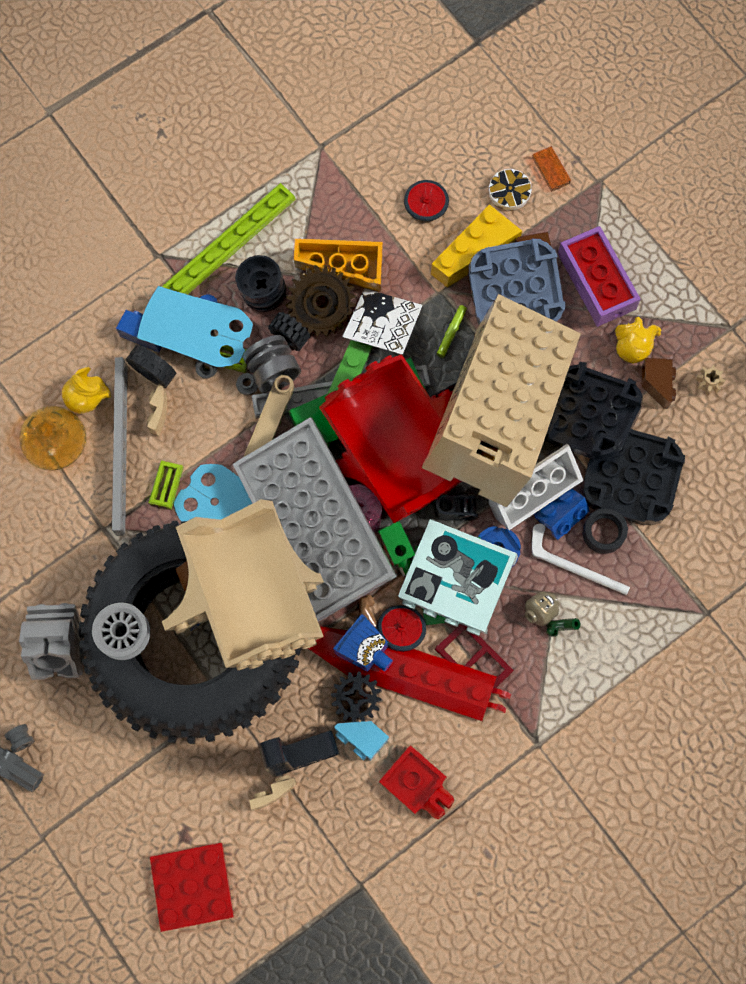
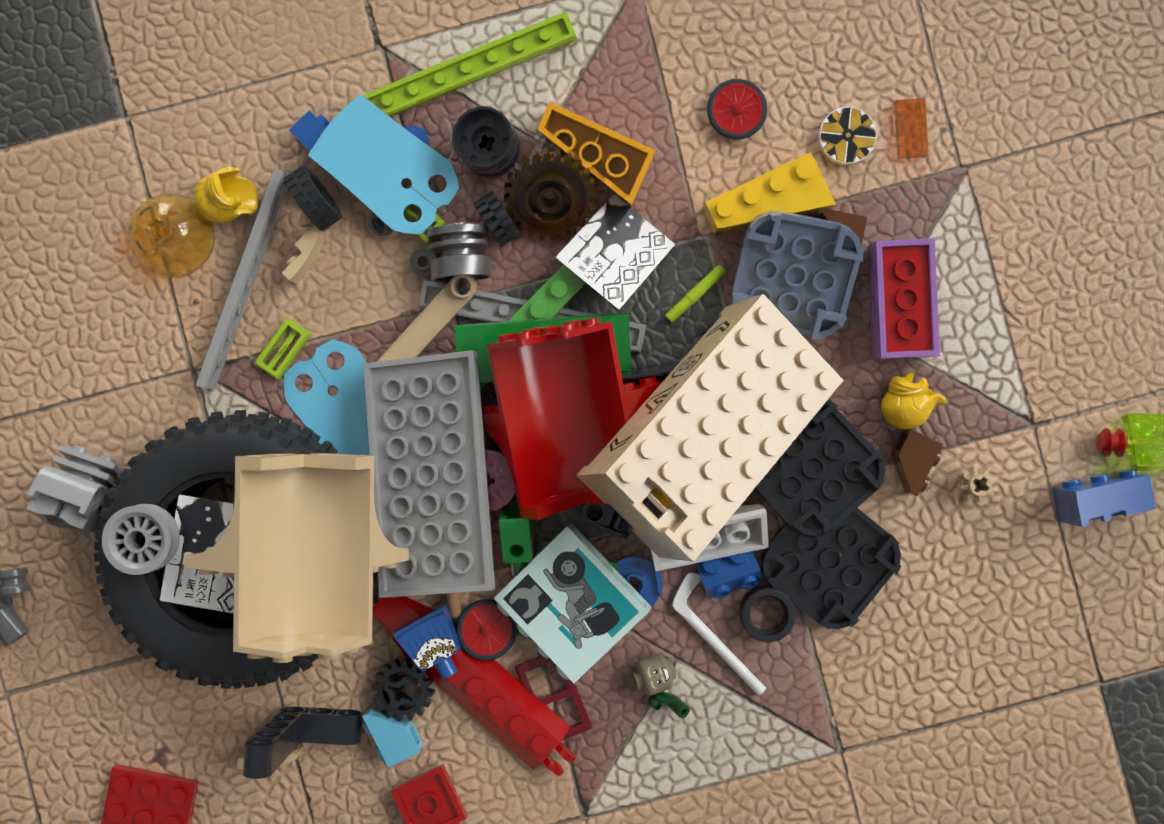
camera: 20 degrees right, 15 degrees up
(172, 650) = (200, 528): none -> sticker

